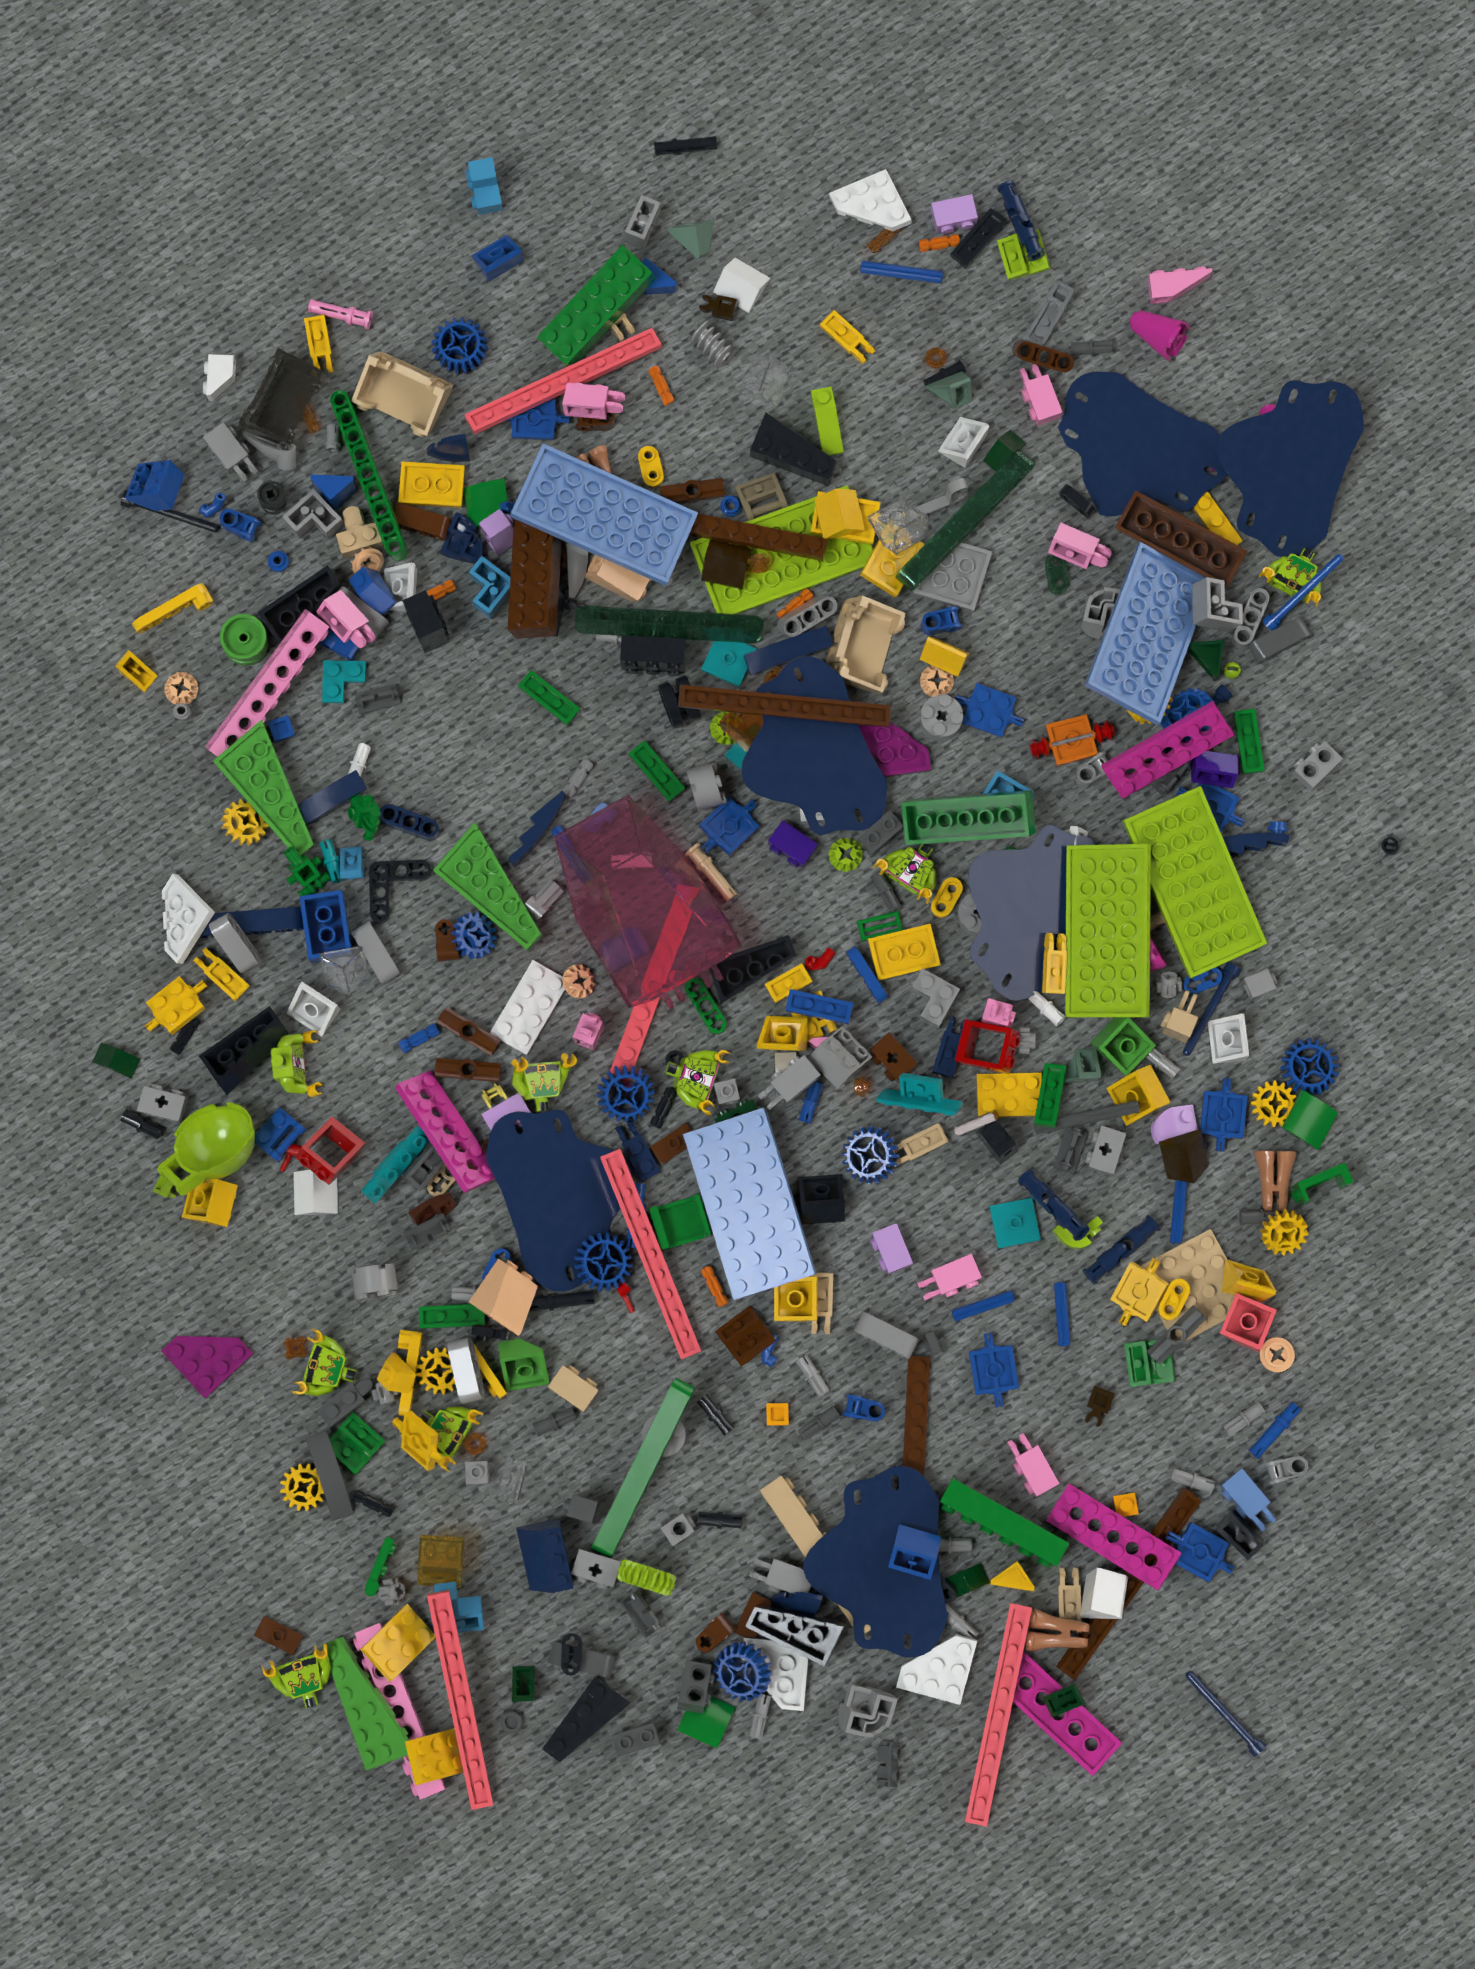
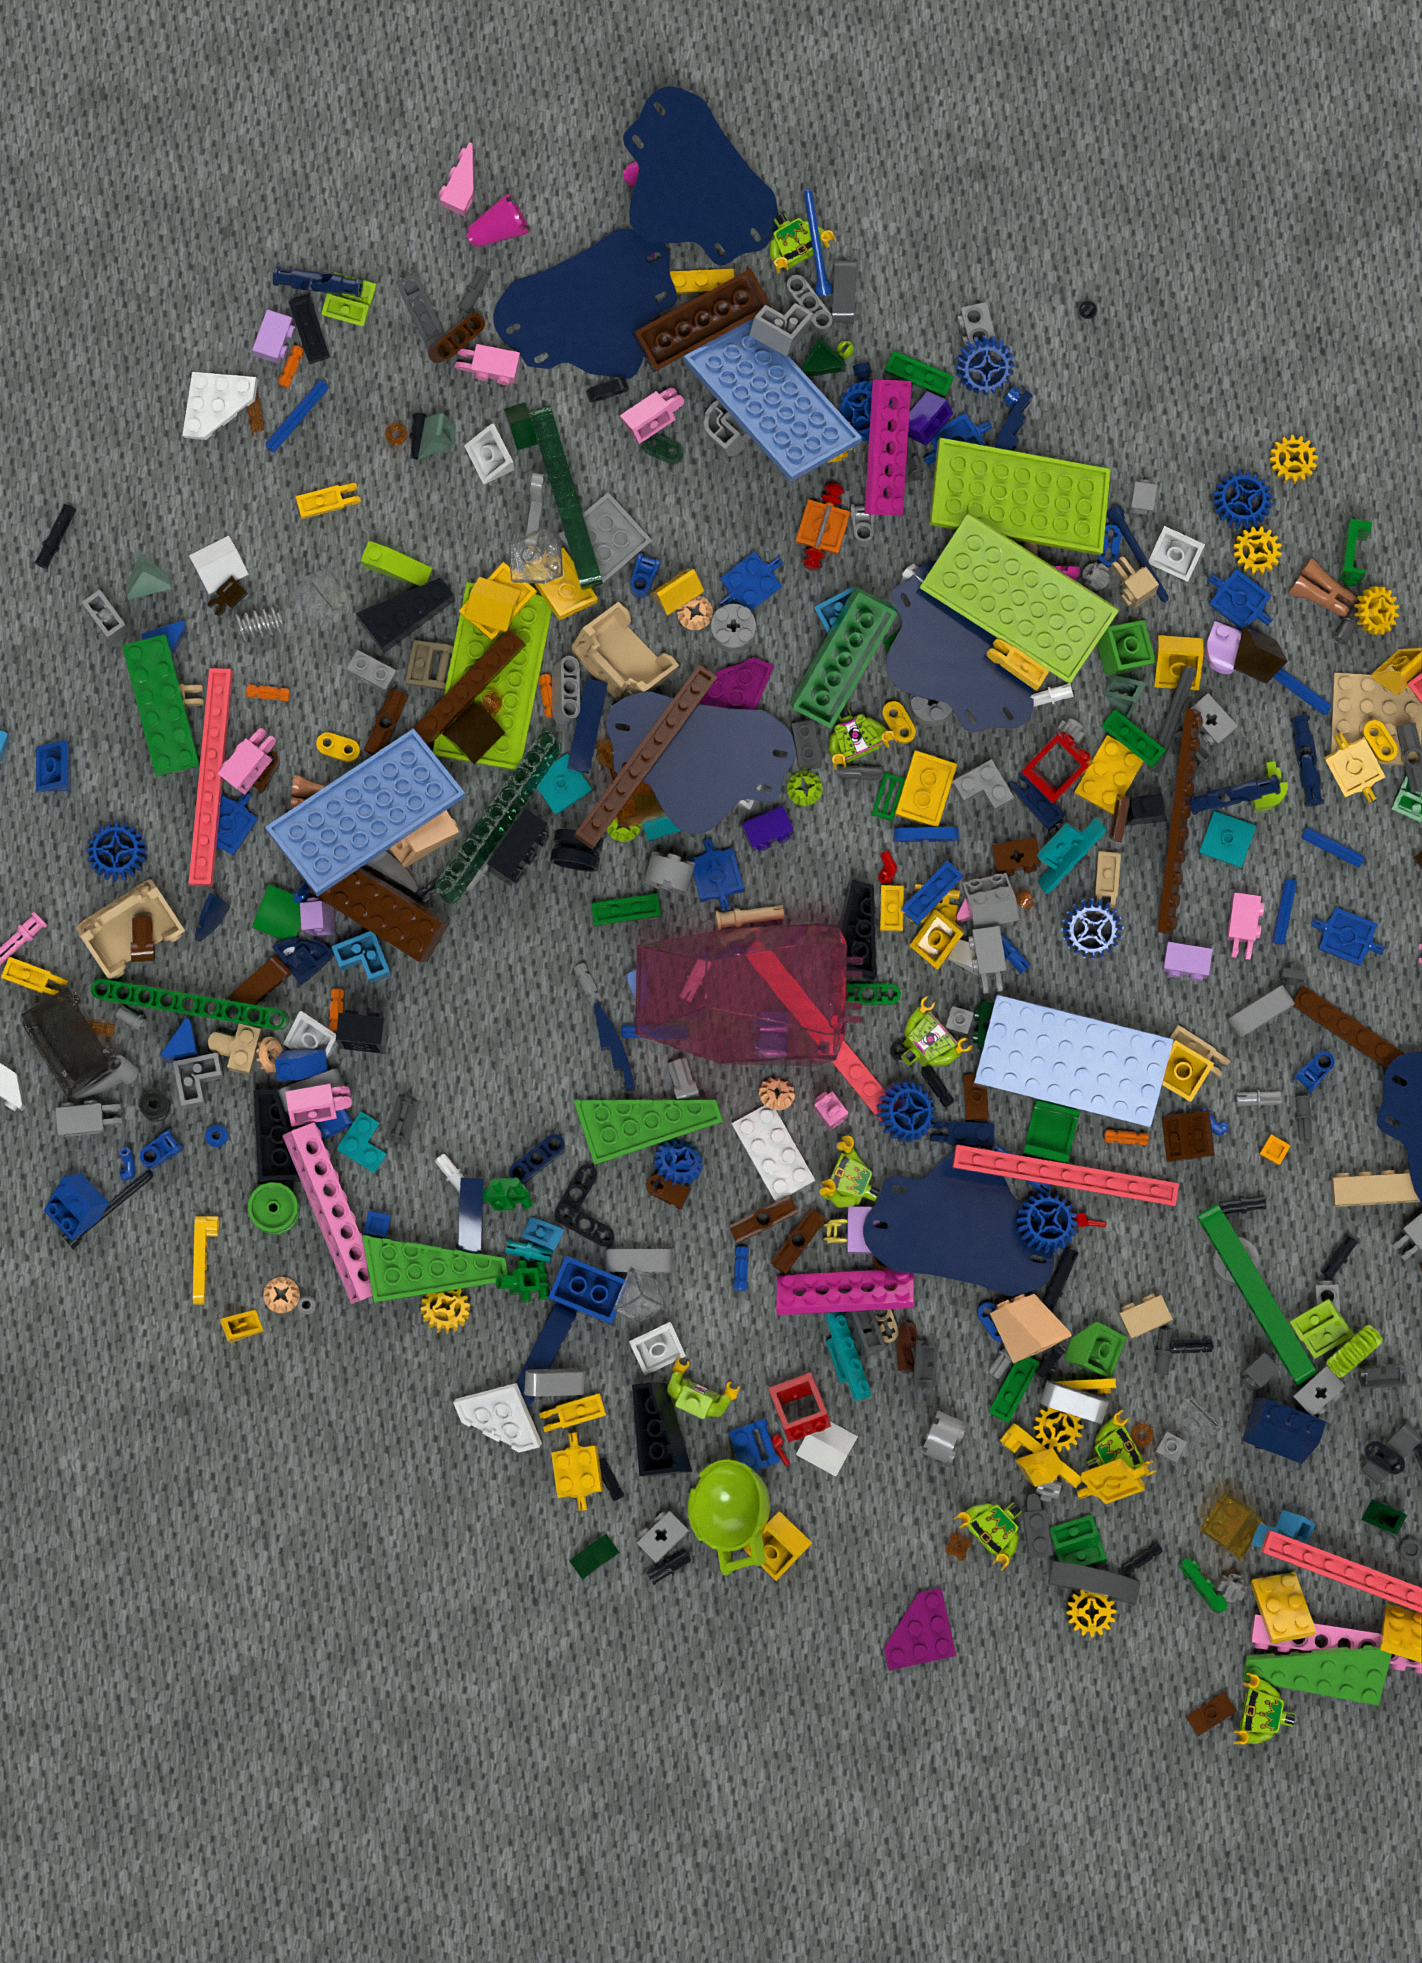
camera: 60 degrees left, 0 degrees up
(163, 1187) = (739, 1579): lime tile -> none
(395, 411) = (143, 945): none -> reddish brown piece
(431, 484) = (232, 954): yellow plate -> none
(549, 698) = (498, 965): green plate -> none
(572, 1440) = (1191, 1346): none -> black axle
(650, 1539) = (1321, 1328): none -> lime slope
(727, 455) = (372, 672): none -> light grey brick
(727, 500) = (420, 691): blue plate -> none
(821, 1199) = (1105, 995): black slope -> none
(997, 1175) = (1179, 830): none -> reddish brown plate
(998, 1013) = (1034, 740): bright pink hinge -> none
(1162, 1063) = (1162, 624): light grey axle -> none
(1284, 781) = (967, 363): none -> blue gear
(1309, 1119) = (1290, 528): green slope -> none
(1379, 1090) = (1299, 465): none -> yellow gear

